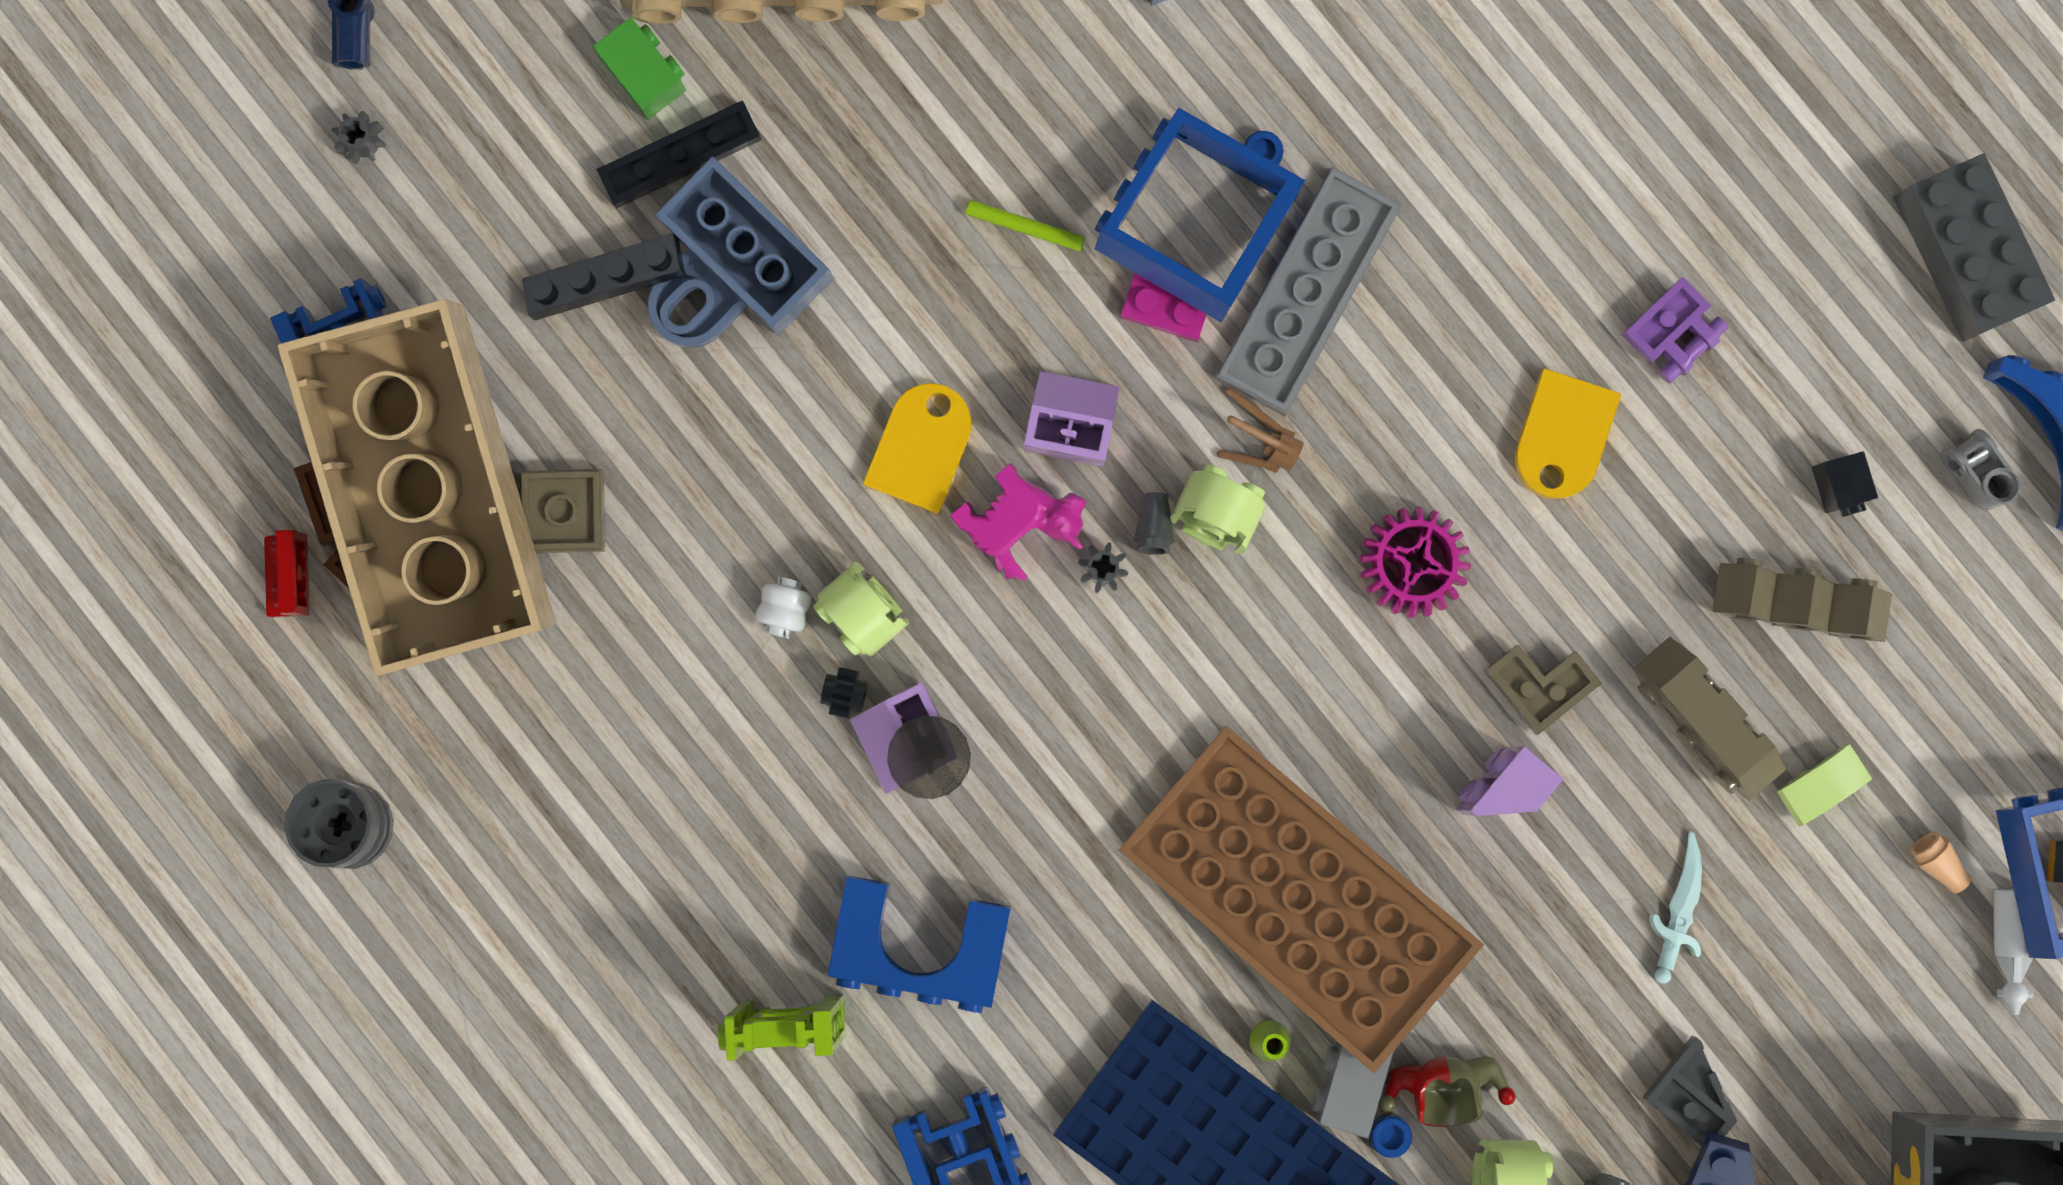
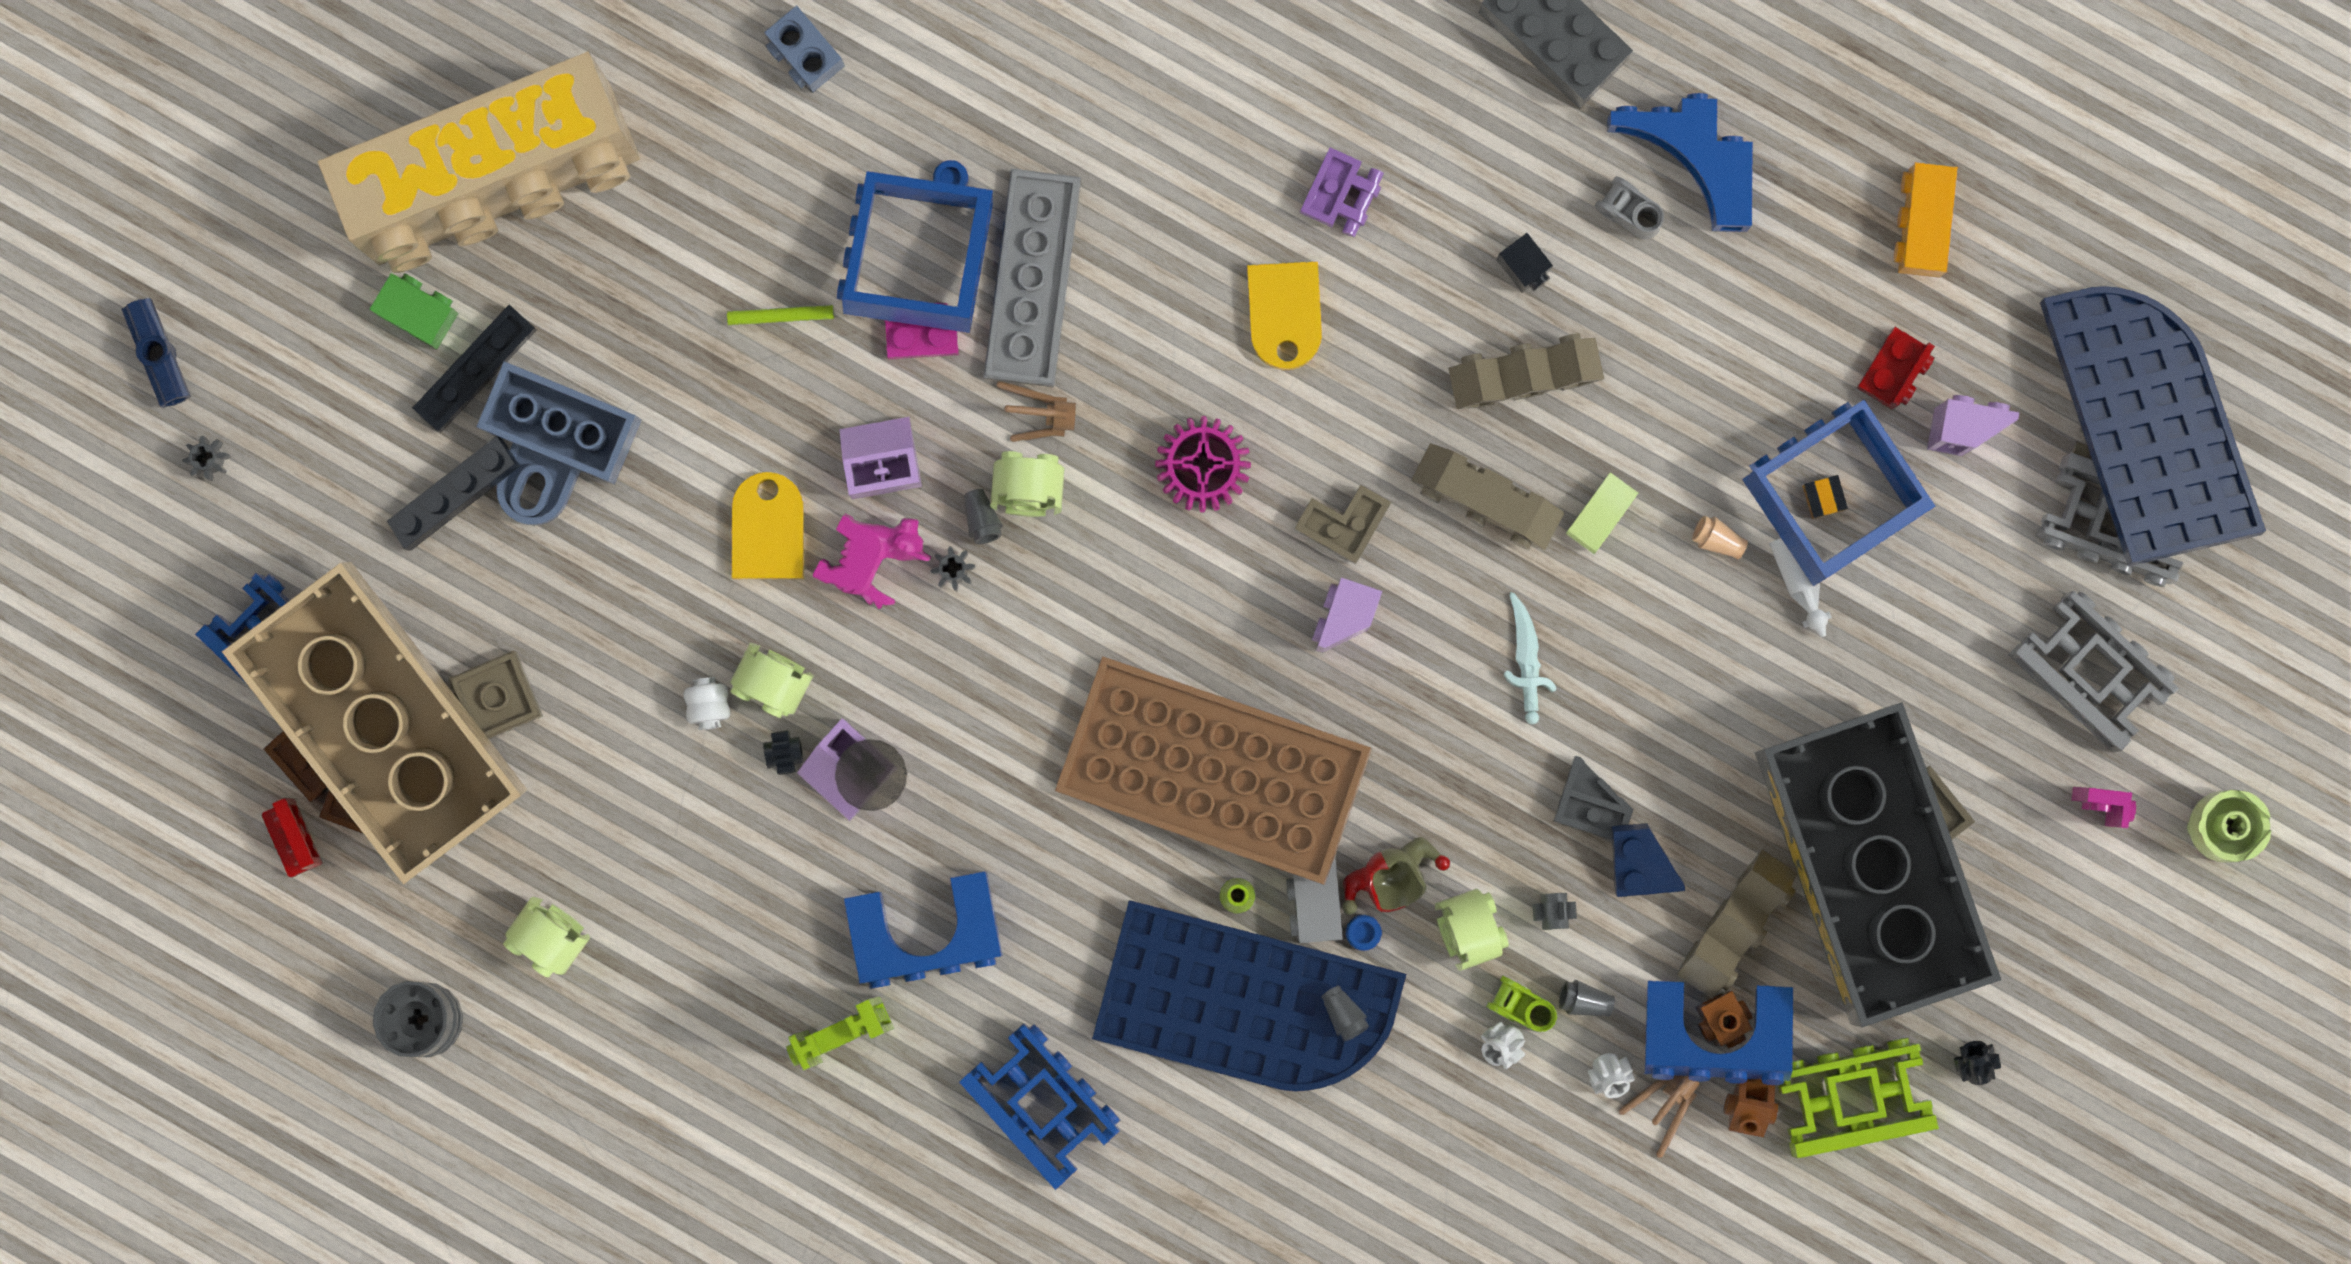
camera: 20 degrees left, 0 degrees up
(511, 791) = (546, 937): none -> yellowish green brick

